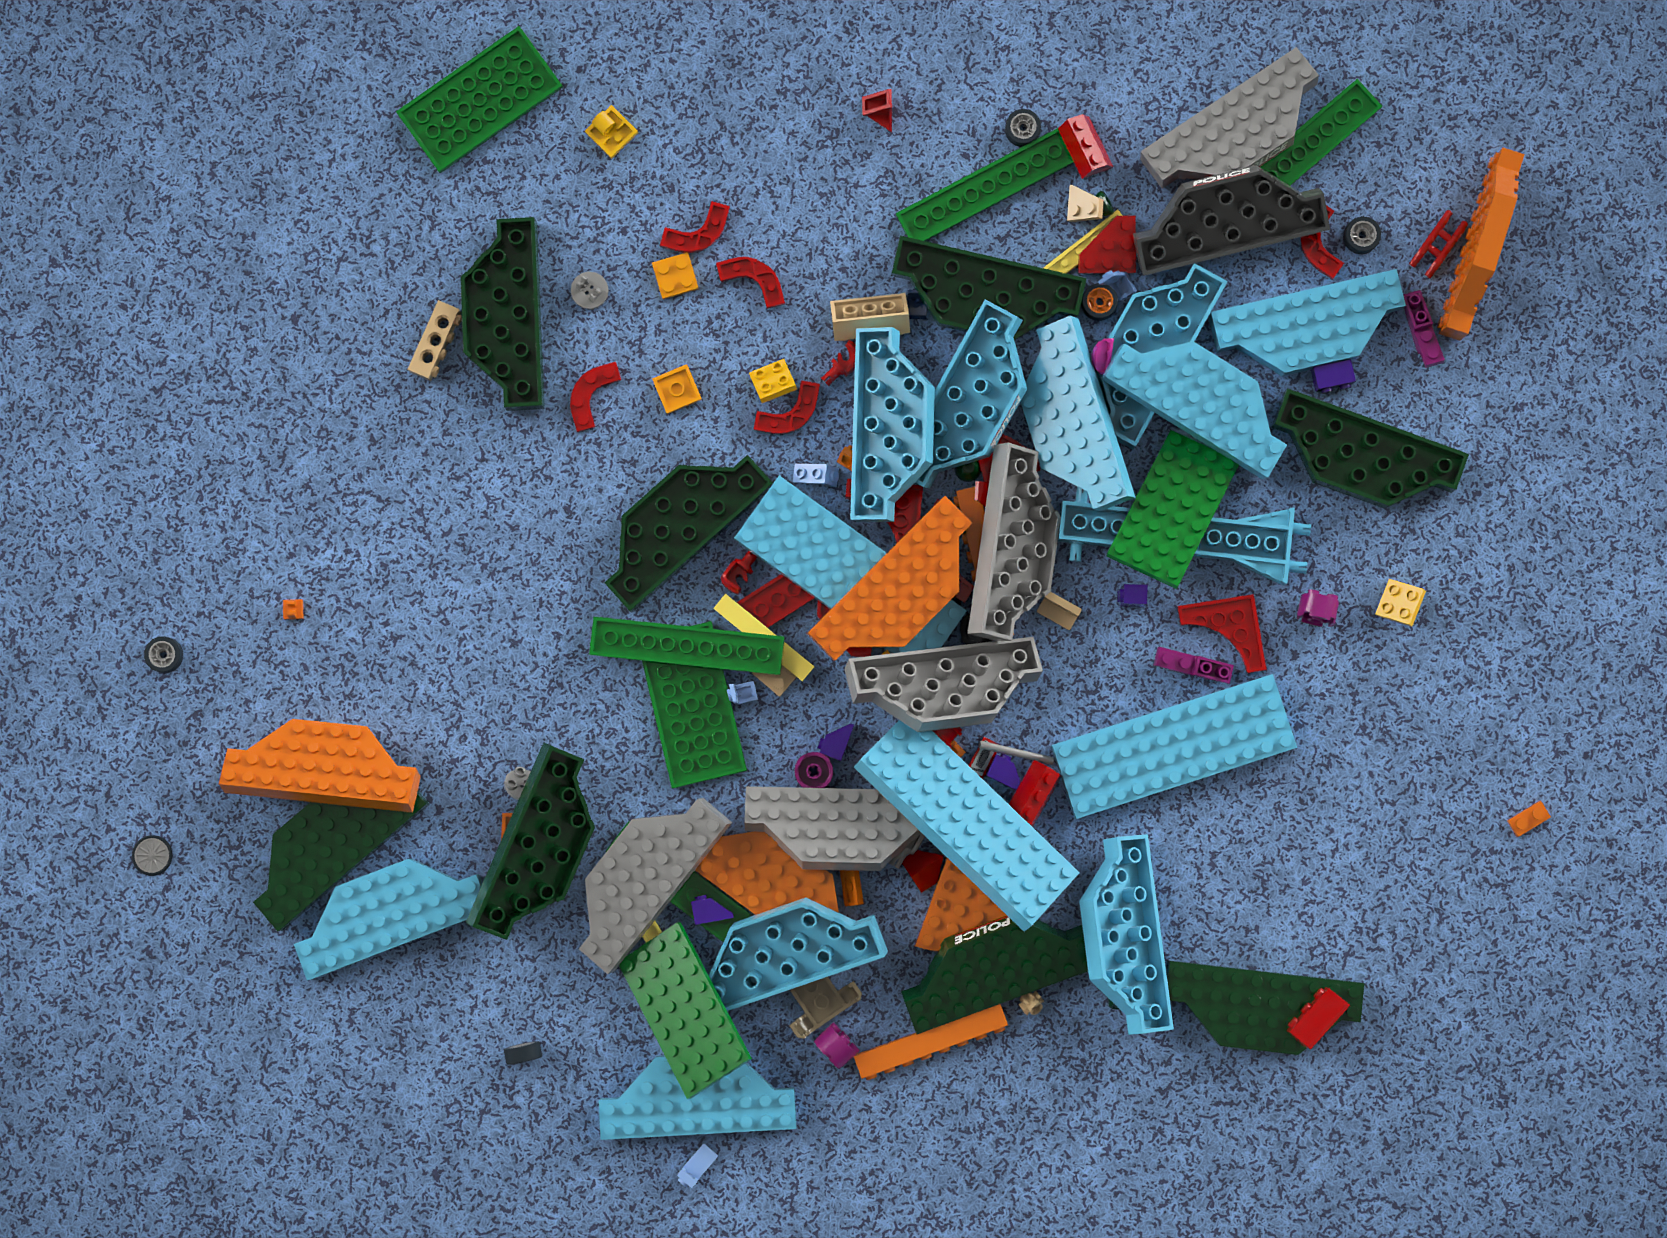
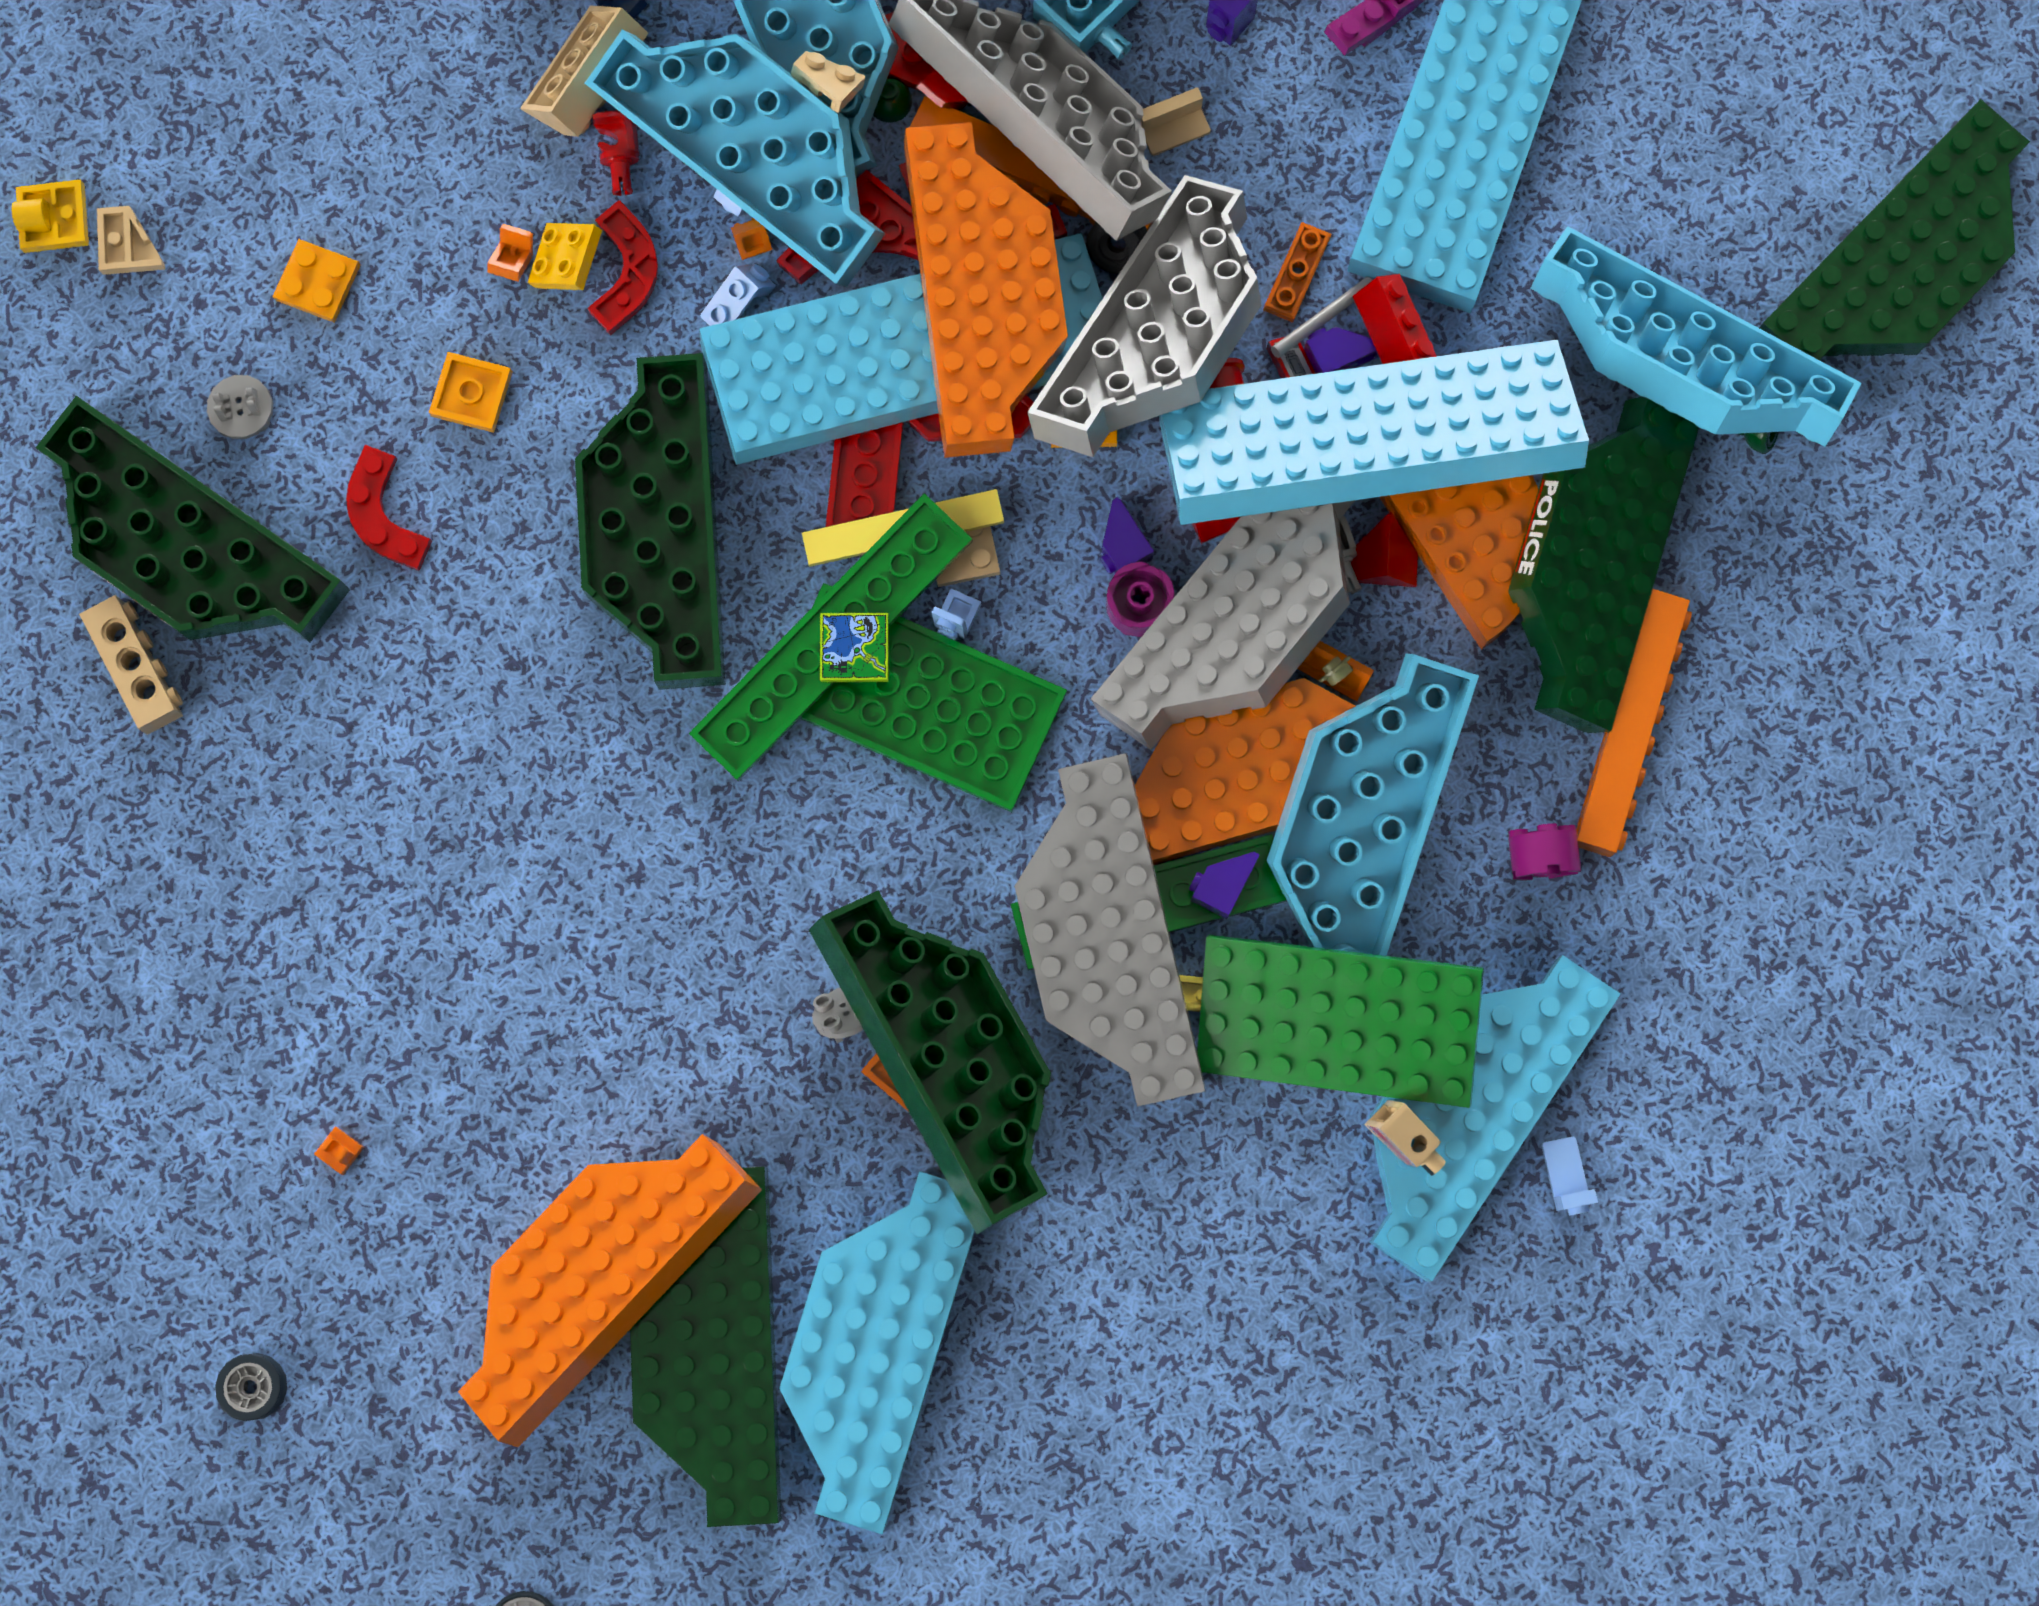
camera: 55 degrees left, 5 degrees down
(522, 1052) = (1223, 1300): black wheel -> none
(624, 175) = (124, 243): none -> tan wing
(652, 1075) = (1397, 1126): none -> tan torso
(688, 661) = (854, 647): none -> tile
(699, 239) = (294, 210): red plate -> none
(735, 569) = (782, 492): red piece -> none
(755, 270) = (403, 168): red plate -> none
(755, 355) = (512, 253): none -> orange bracket
(821, 1003) = (1469, 829): dark tan piece -> none
(847, 887) = (1336, 670): none -> olive plate
(941, 440) = (823, 76): none -> tan wing
(1019, 725) = (1289, 286): none -> orange tile
(1031, 1003) = (1681, 550): tan gear -> none
(1317, 1017) = (1990, 180): red slope -> none

